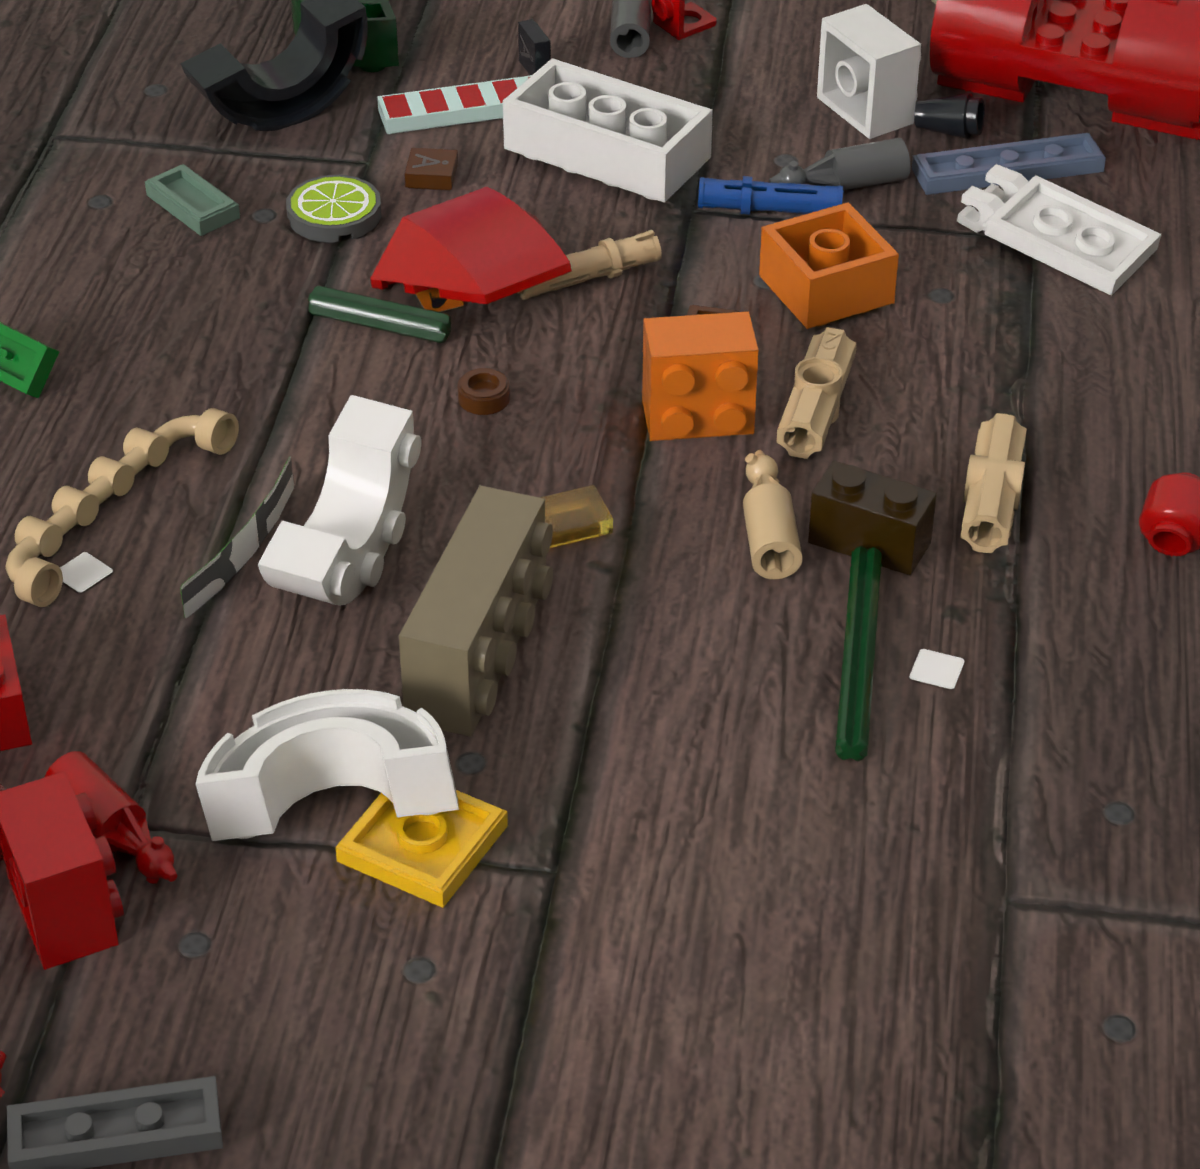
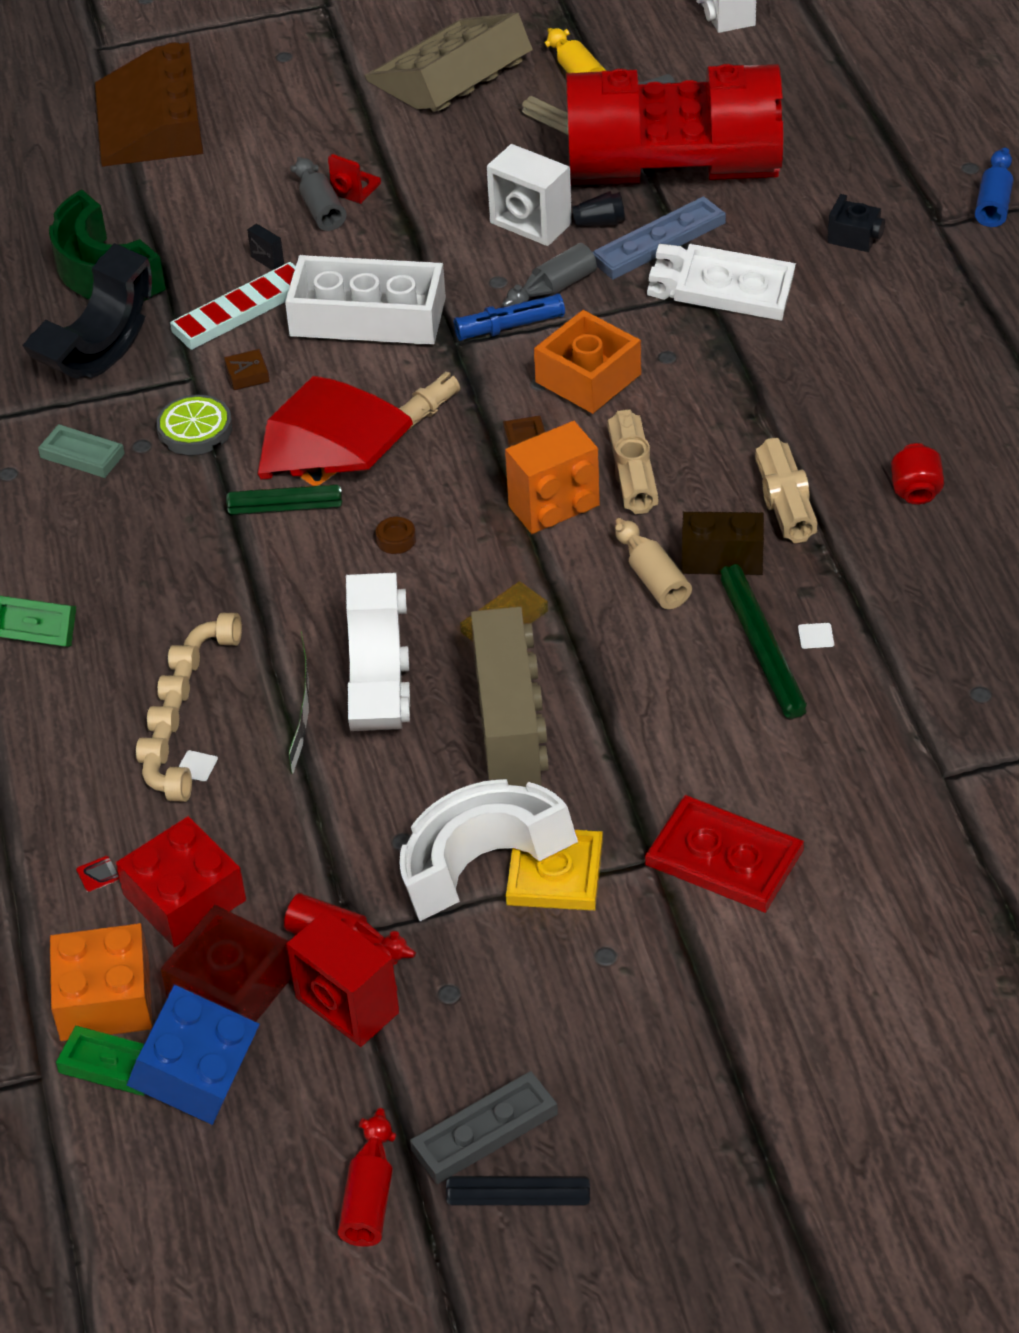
camera: 20 degrees left, 5 degrees up
(652, 895) = (724, 853): none -> red tile

